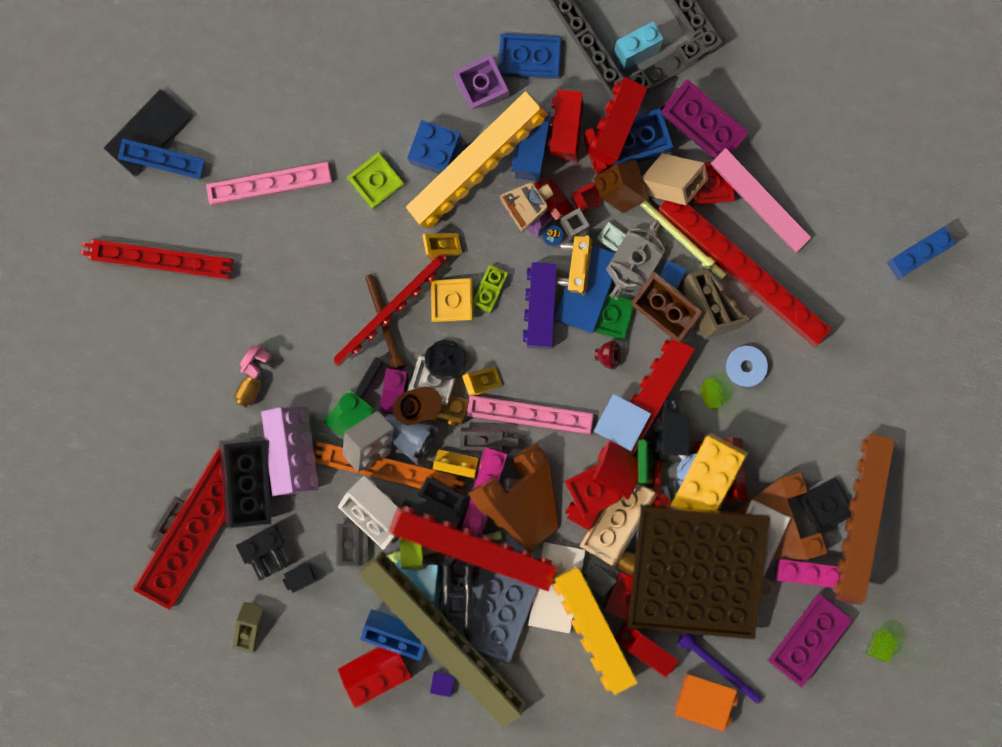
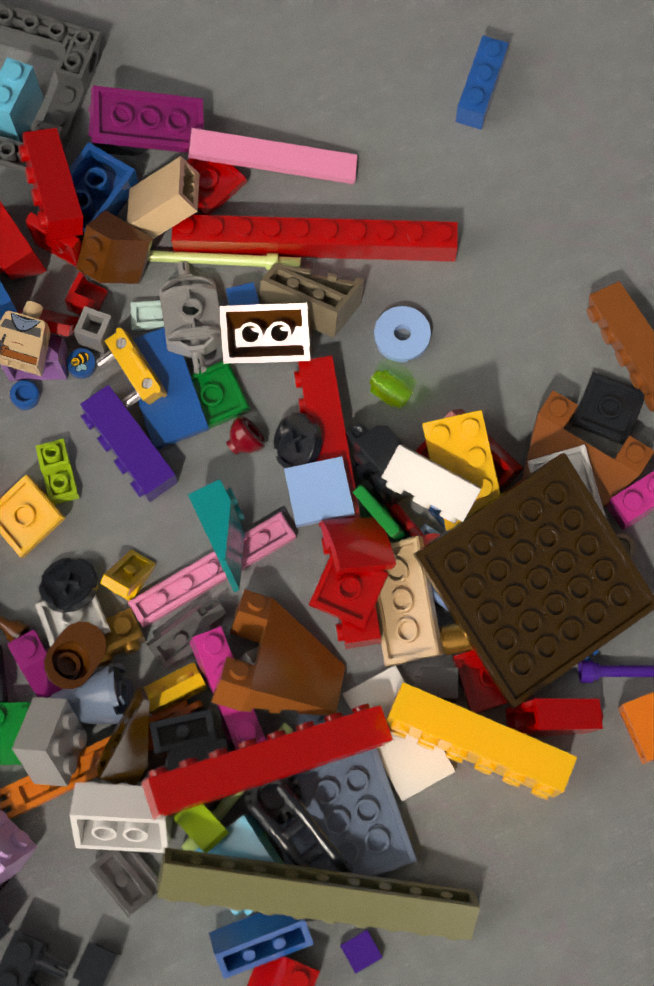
camera: 40 degrees left, 10 degrees down
(404, 479) = (127, 749): none -> dark brown slope
(506, 228) = (25, 395): none -> blue tile
(555, 393) = (221, 520): none -> teal slope
(634, 382) = (297, 440): none -> black tile
(683, 474) = (431, 484): none -> white brick

